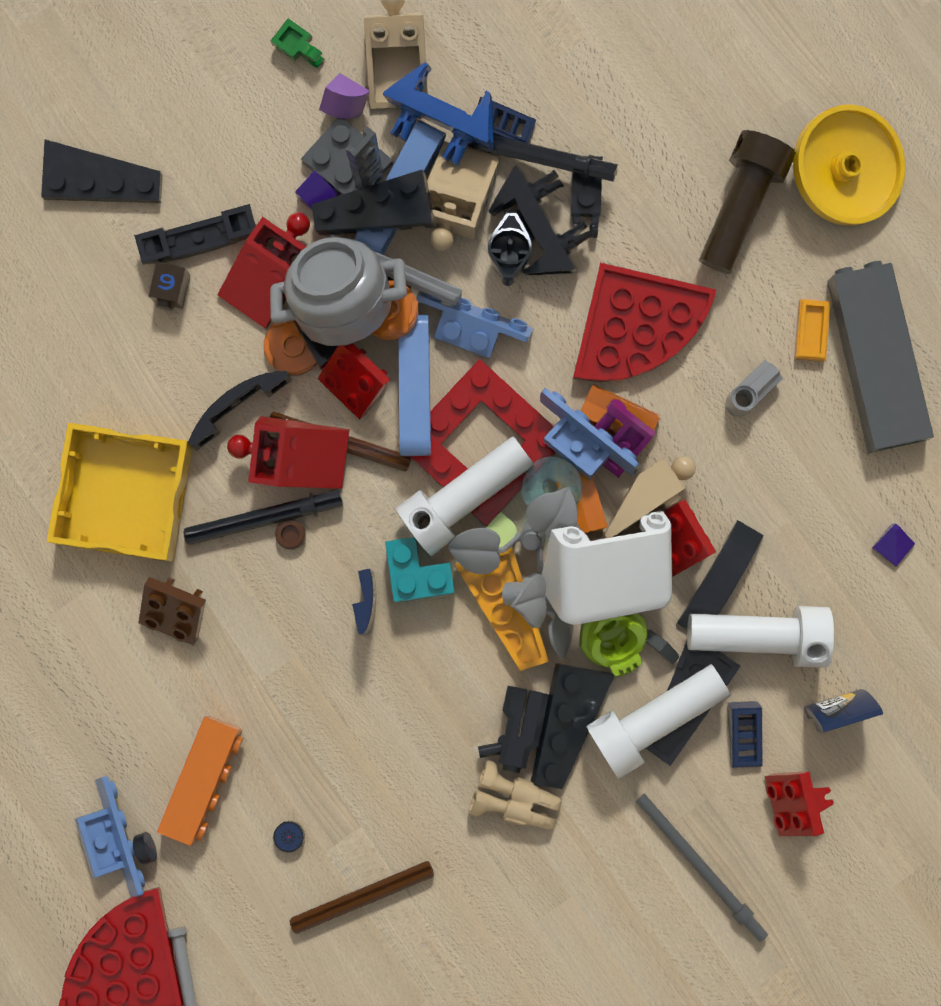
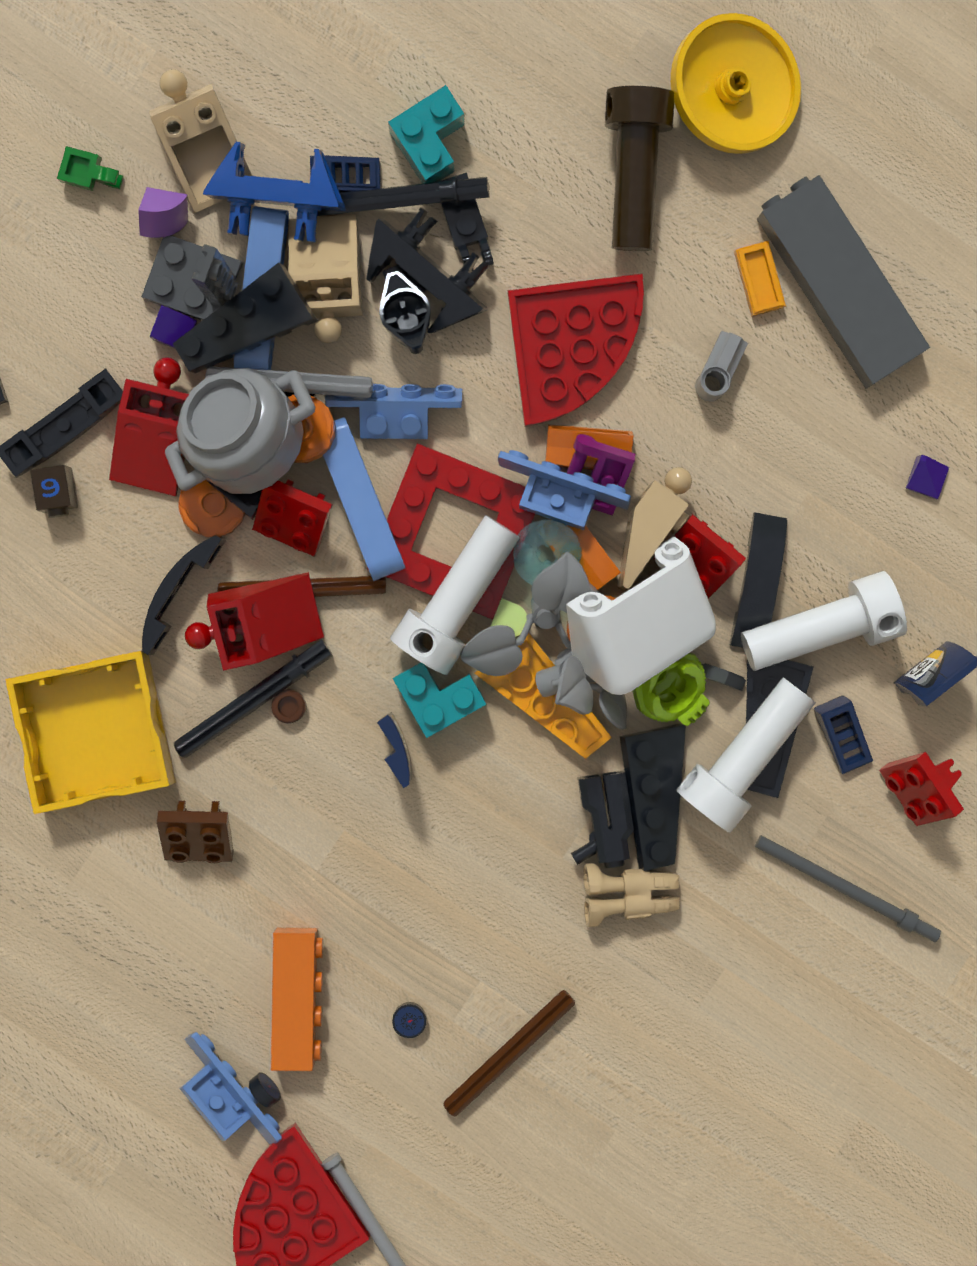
camera: 25 degrees left, 5 degrees up
(579, 109) = (420, 134): none -> teal brick

